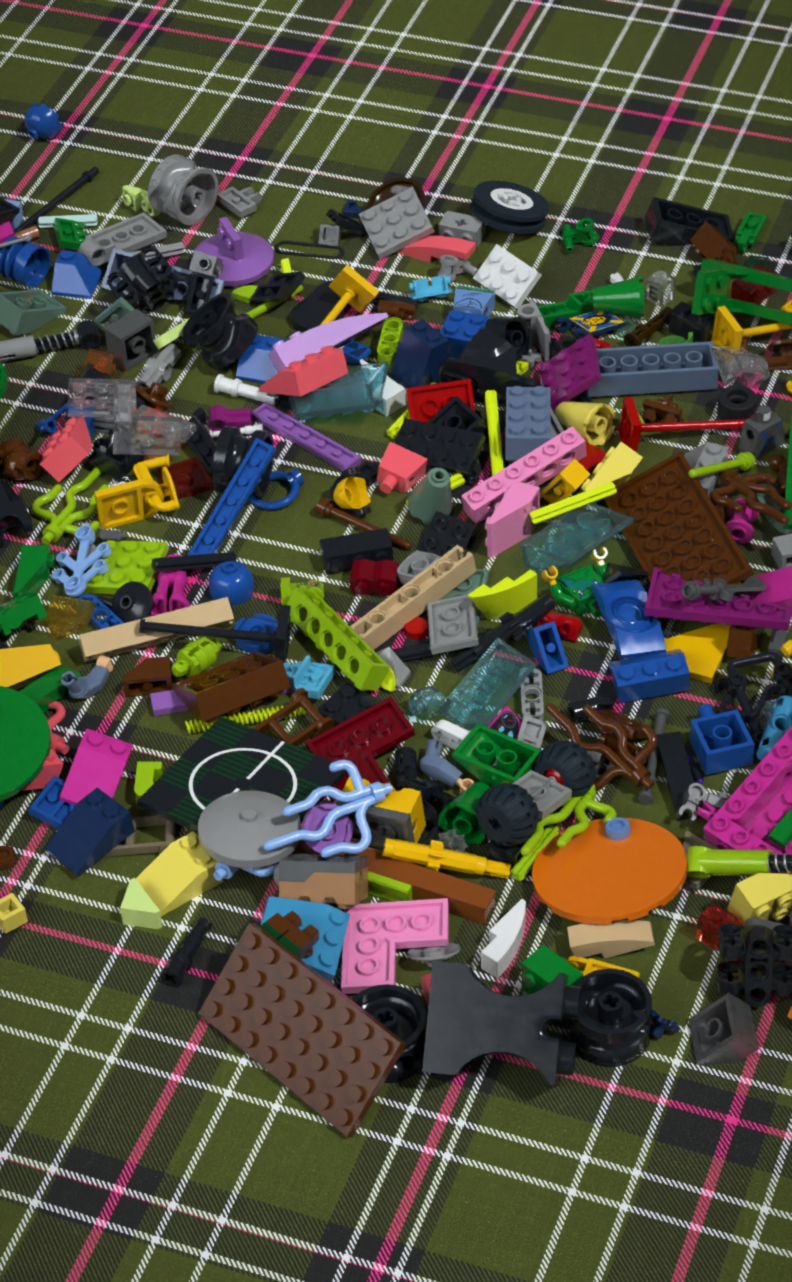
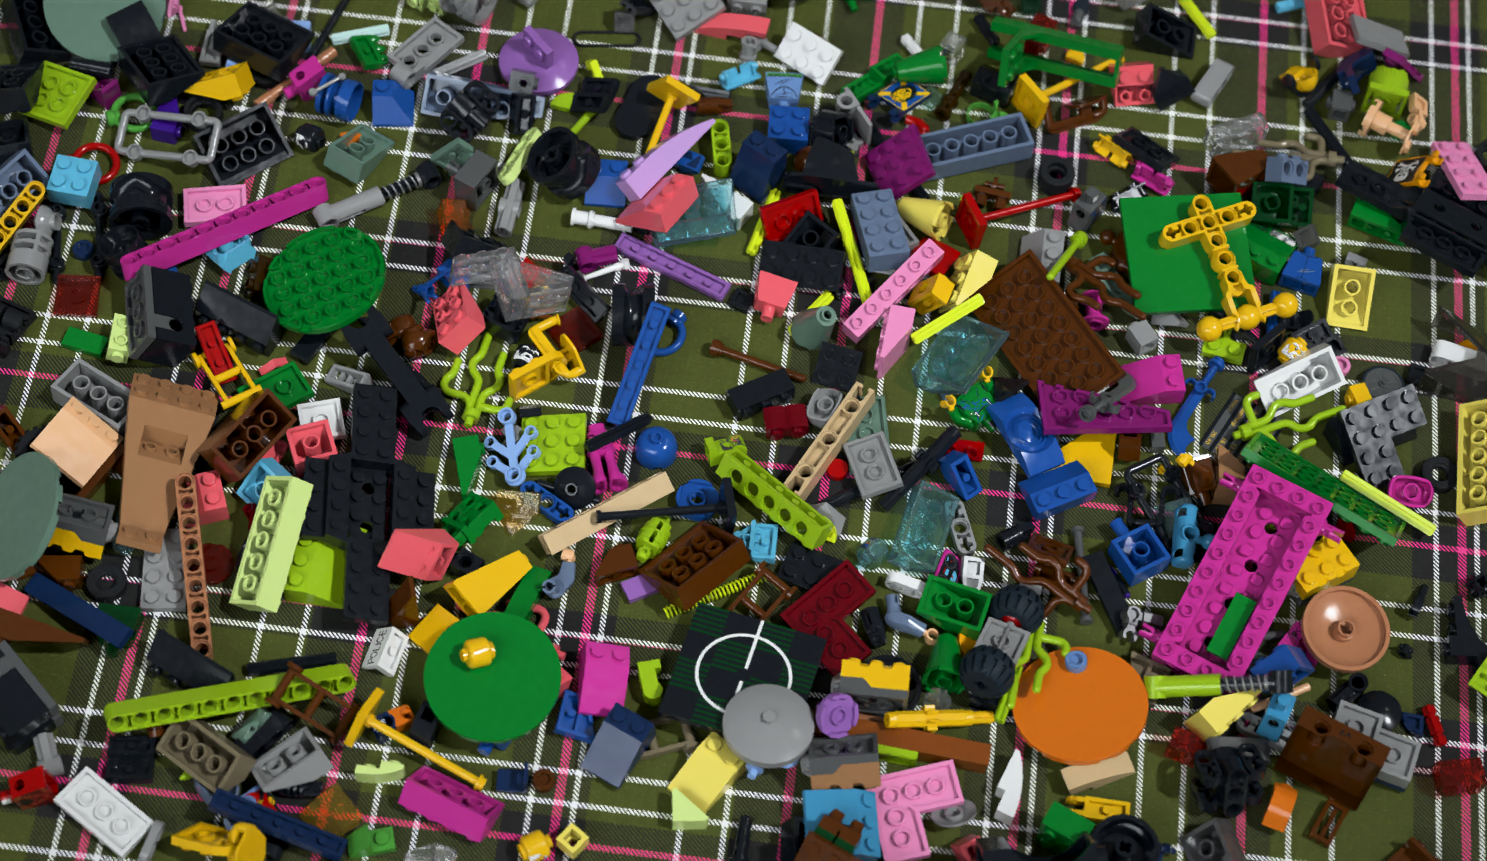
camera: 20 degrees left, 15 degrees up
(155, 395) = (520, 241): reddish brown piece -> none
(350, 493) = (737, 332): yellow cap -> none
(362, 799) = (863, 685): light blue plant -> none
(430, 788) = (896, 649): black piece -> none
(505, 596) = (915, 430): neon yellow slope -> none
(740, 366) = (1051, 134): clear slope -> none

